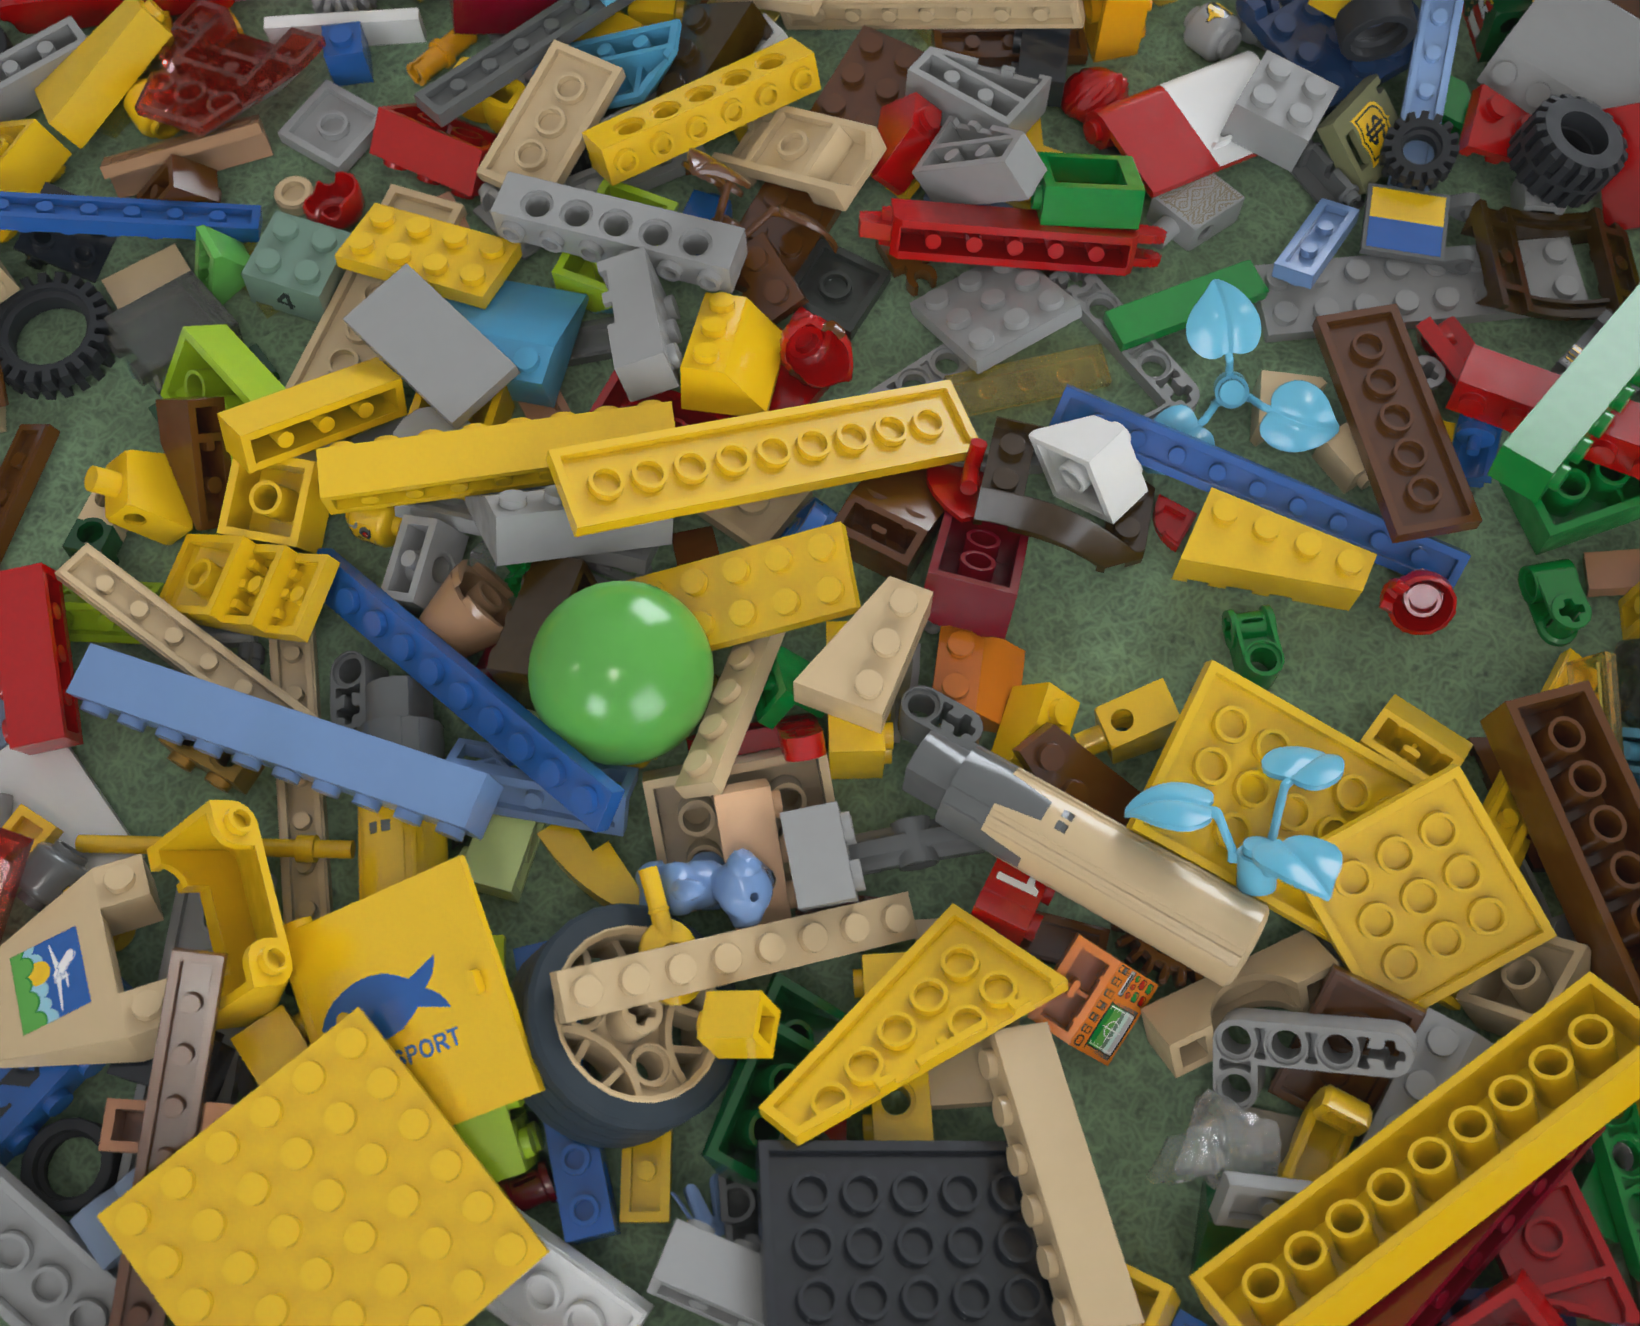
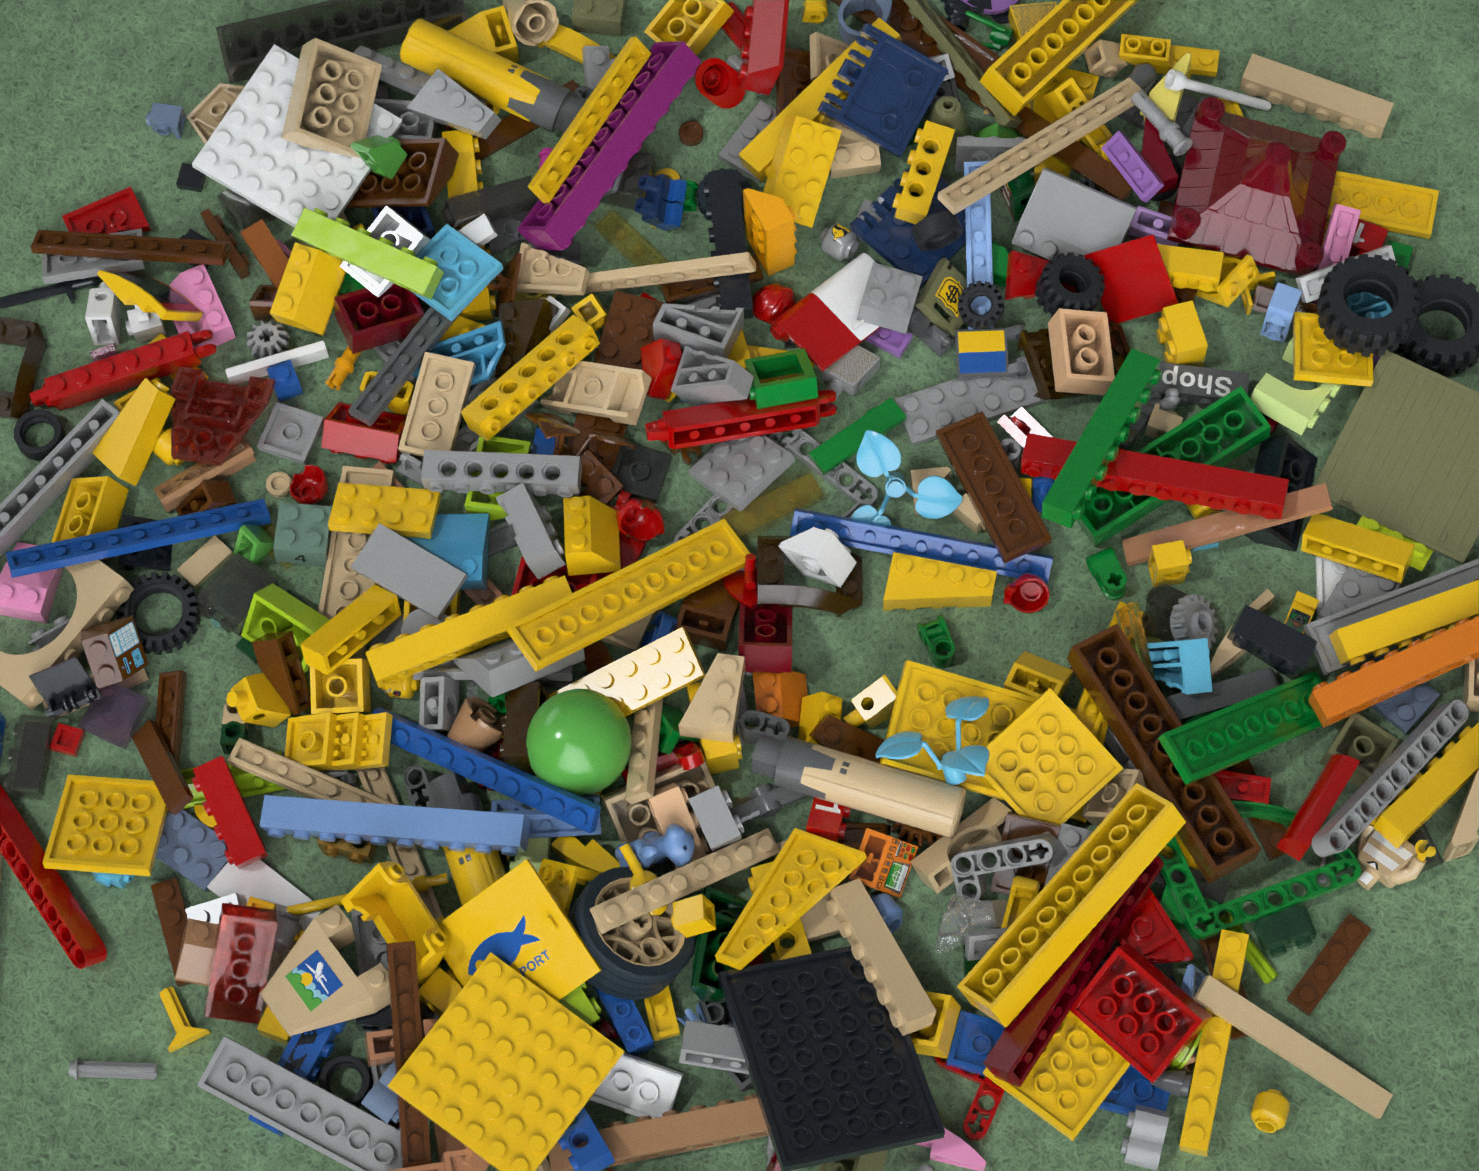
camera: 10 degrees left, 0 degrees up
(522, 905) = (562, 878): none -> yellow bracket
(822, 41) = (591, 311): none -> yellow brick
(1085, 1085) = (889, 910): none -> medium blue head
(1172, 521) = (876, 575): red tile -> none
(1261, 181) = (891, 341): none -> medium lavender plate
(1315, 243) = (929, 378): medium blue plate -> none
(1572, 247) = (1081, 351): none -> light nougat brick

